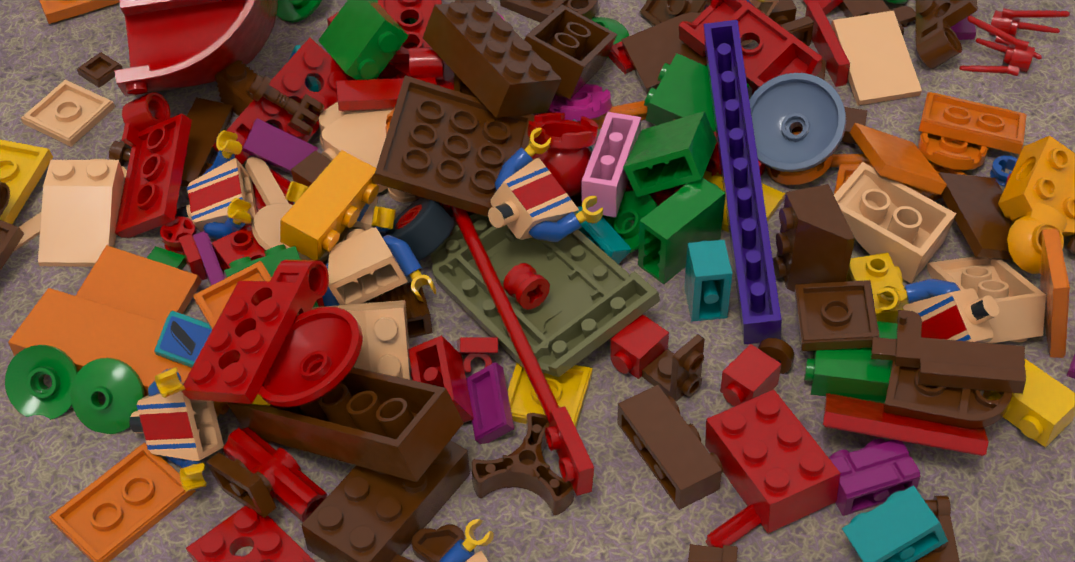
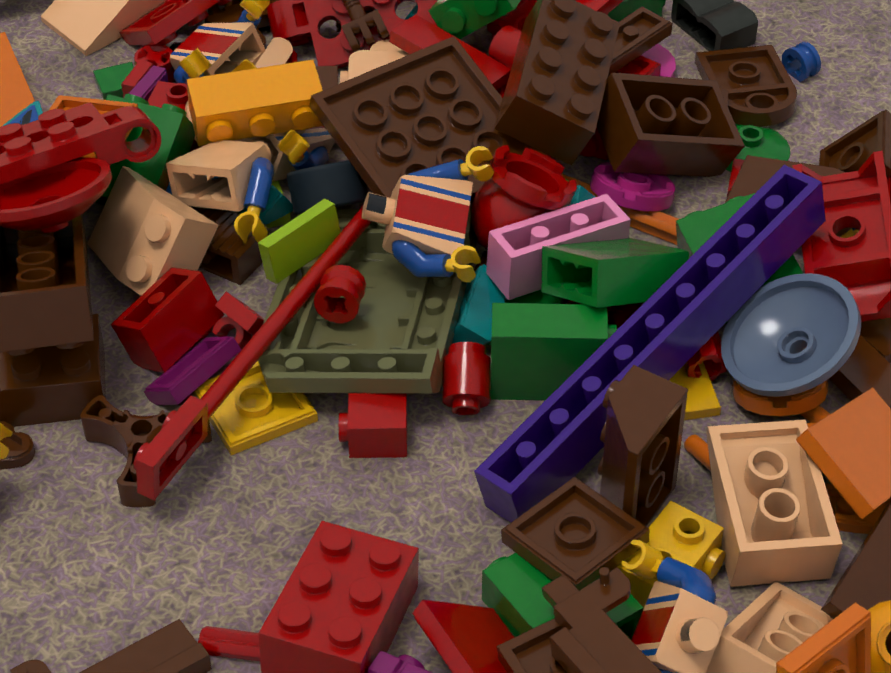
camera: 45 degrees right, 5 degrees down
(138, 285) = (68, 70): orange tile -> none
(276, 146) = (313, 39): magenta tile -> none
(458, 273) = (299, 241): none -> lime tile
(655, 275) = (466, 378): none -> red brick
(670, 446) = (277, 525): reddish brown brick -> none
(678, 372) = (375, 468): reddish brown bracket -> none
(708, 280) = (501, 403): teal brick -> none
(749, 376) = (435, 528): red brick -> none
(779, 351) = (485, 533): reddish brown tile -> none

